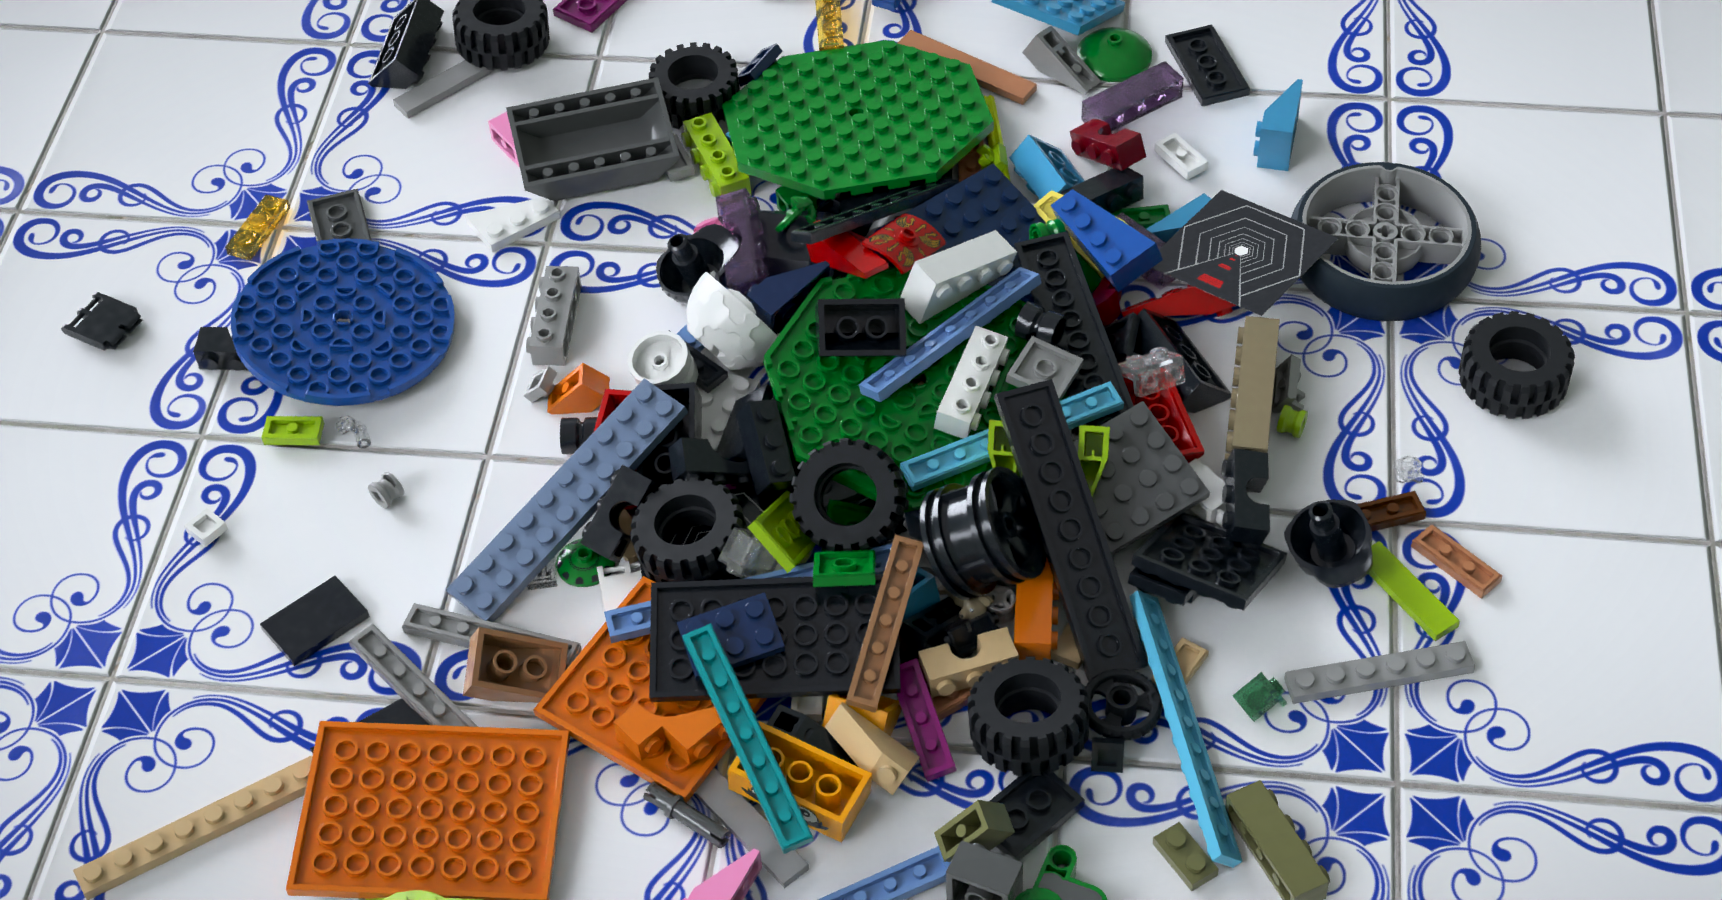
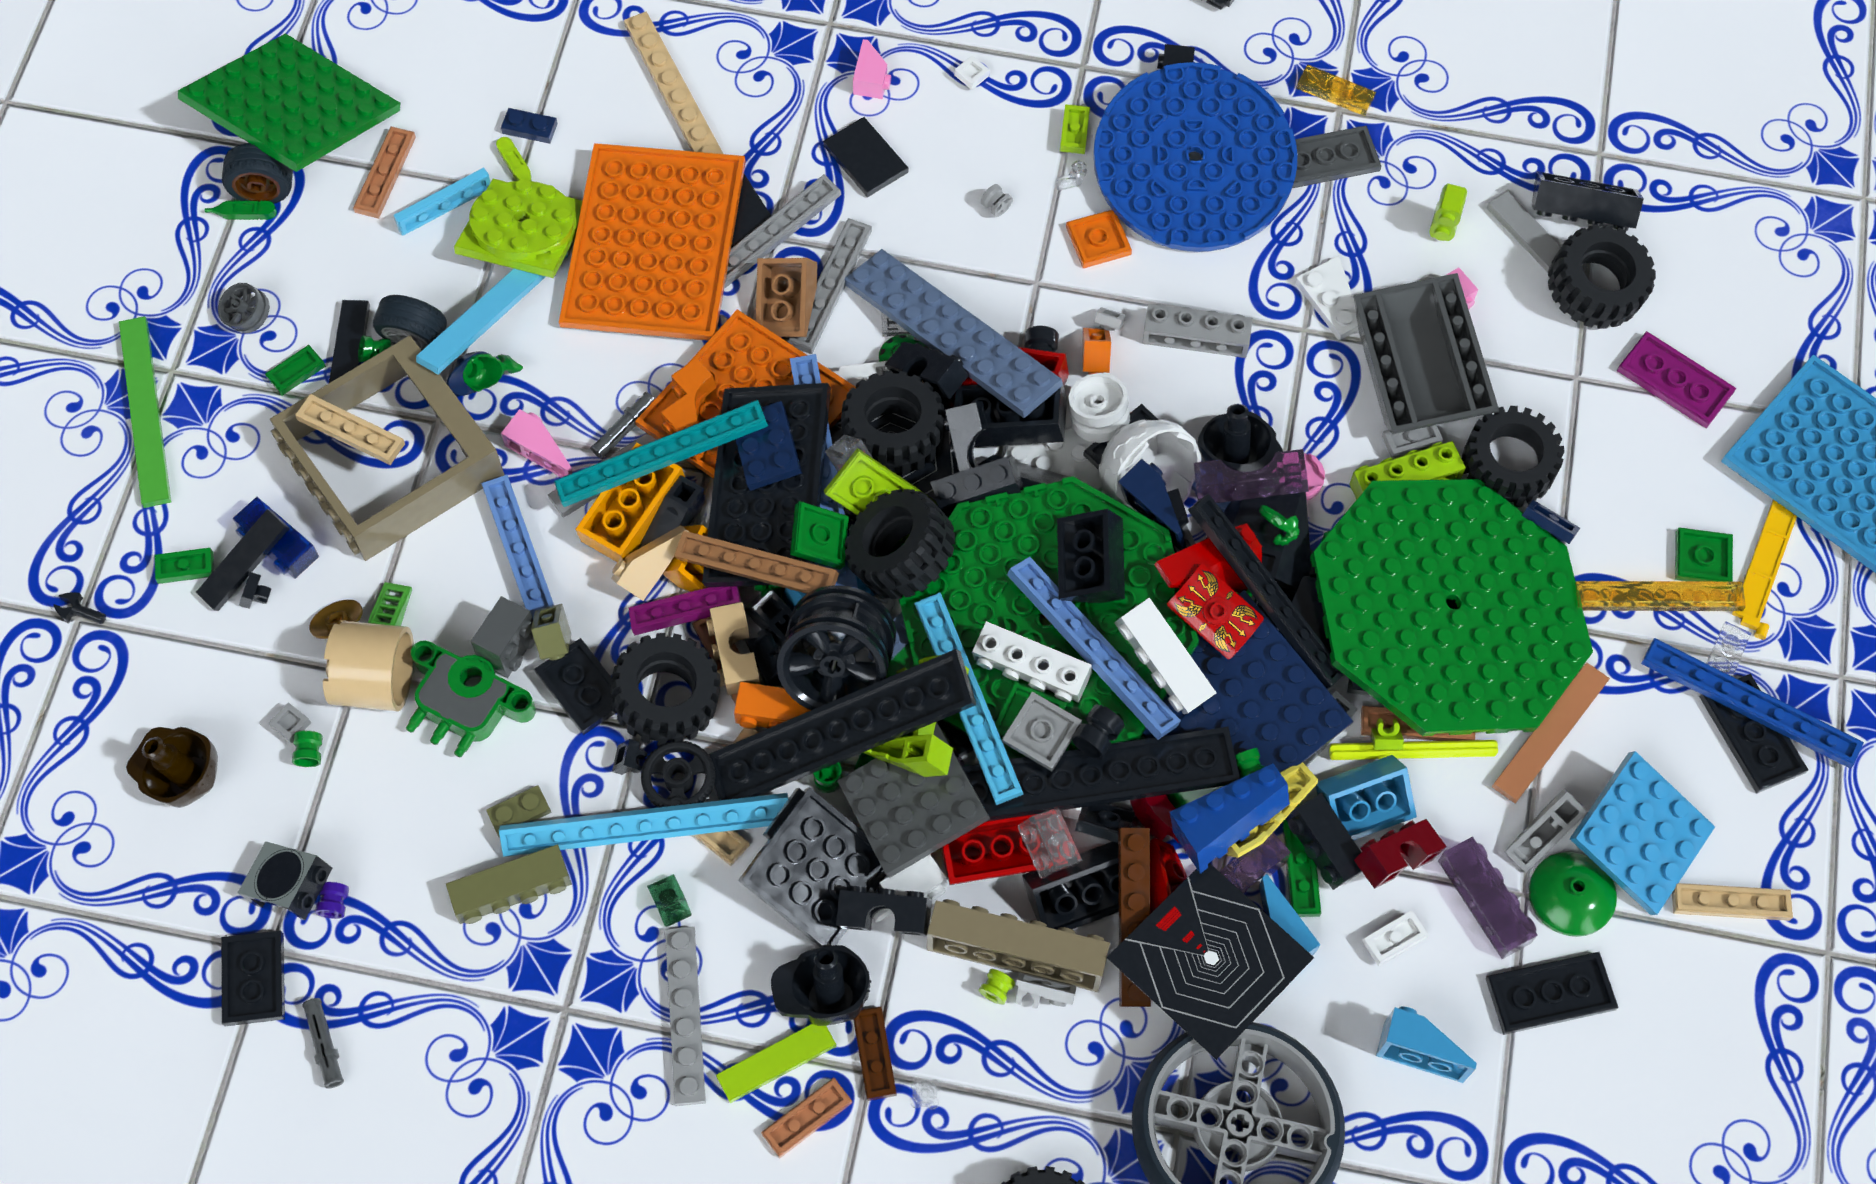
camera: 90 degrees right, 15 degrees up
(195, 621) = (870, 73): none -> bright pink slope
(424, 129) = (1448, 212): none -> lime brick
(435, 405) = (1098, 238): none -> orange tile
(1194, 313) = (1133, 900): none -> reddish brown plate

